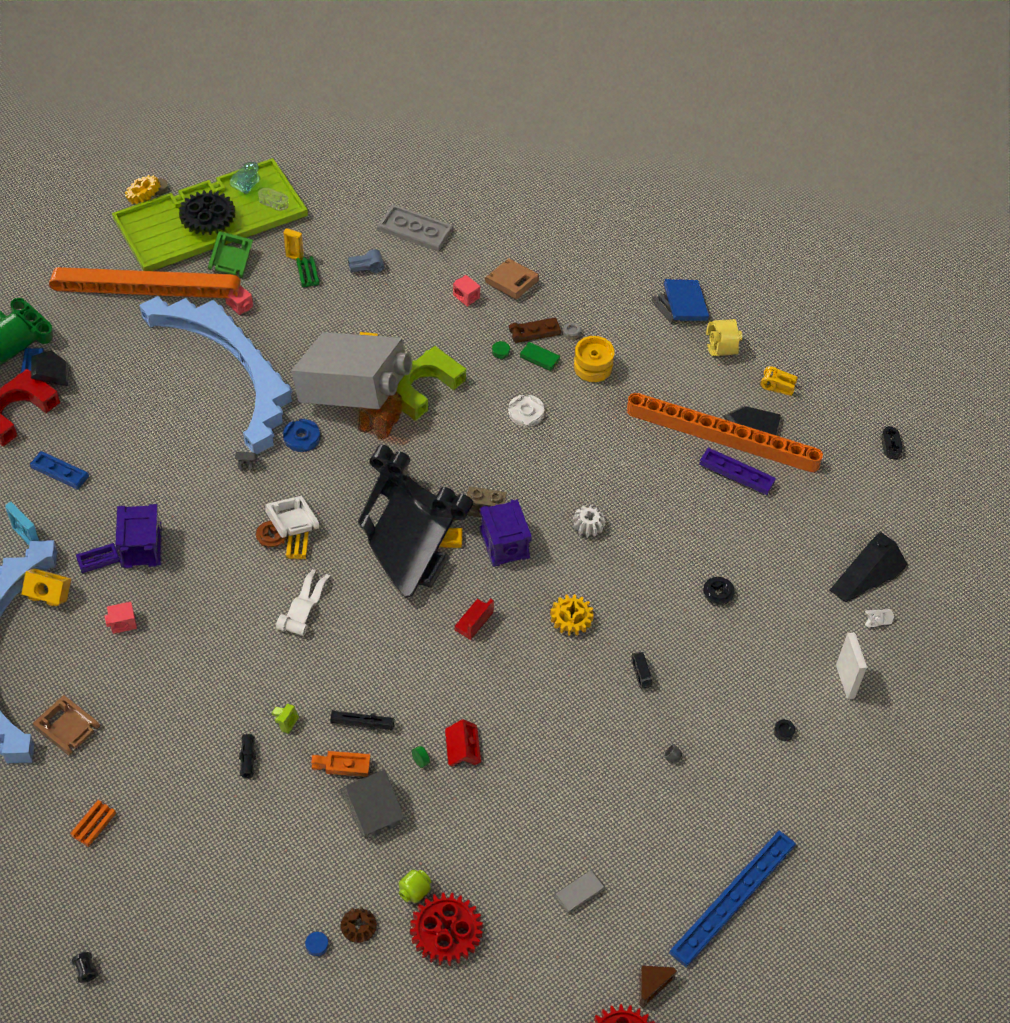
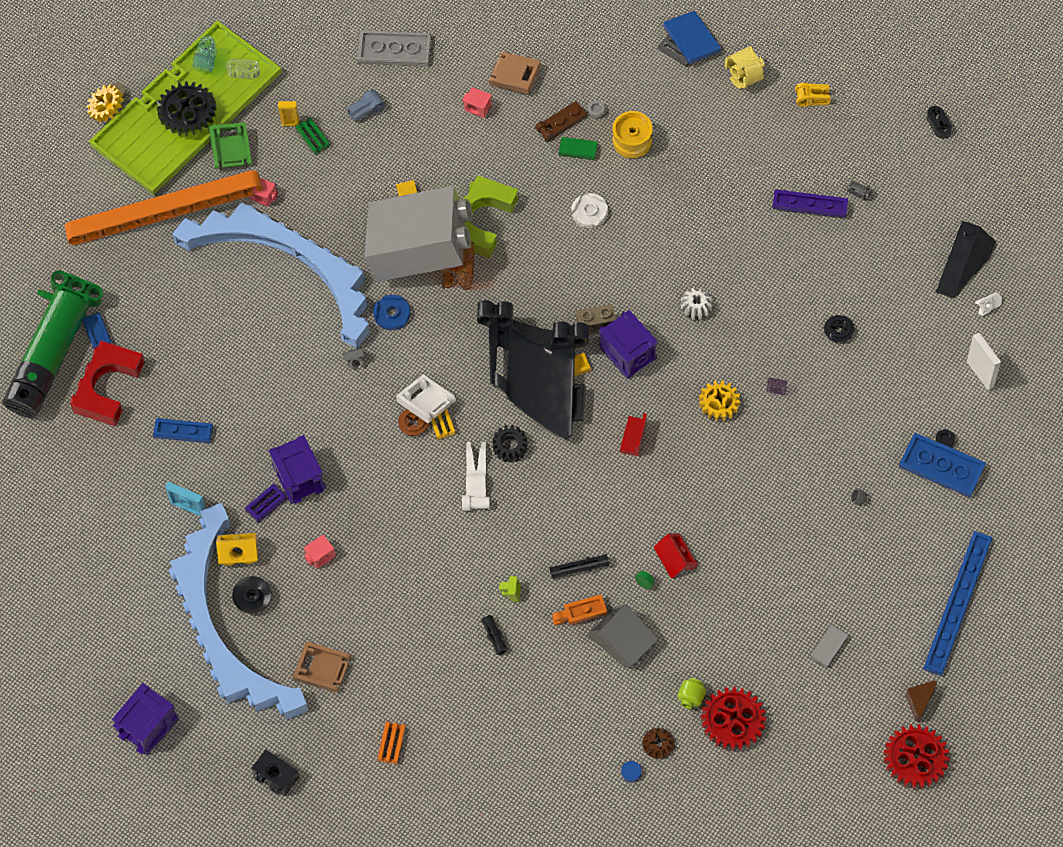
camera: 15 degrees left, 10 degrees up
(34, 627) = (251, 586): none -> black dish
(50, 368) = (120, 331): black tile -> none
(351, 593) = (507, 433): none -> black tyre
(500, 349) = (538, 154): green tile -> none
(634, 621) = (776, 386): none -> clear purple tile
(641, 670) = (801, 430): black beam -> none
(724, 432) = (790, 164): orange beam -> none
(755, 419) = (806, 146): black tile -> none
(771, 753) = (942, 464): none -> blue plate
(793, 477) = (860, 190): none -> dark grey pin

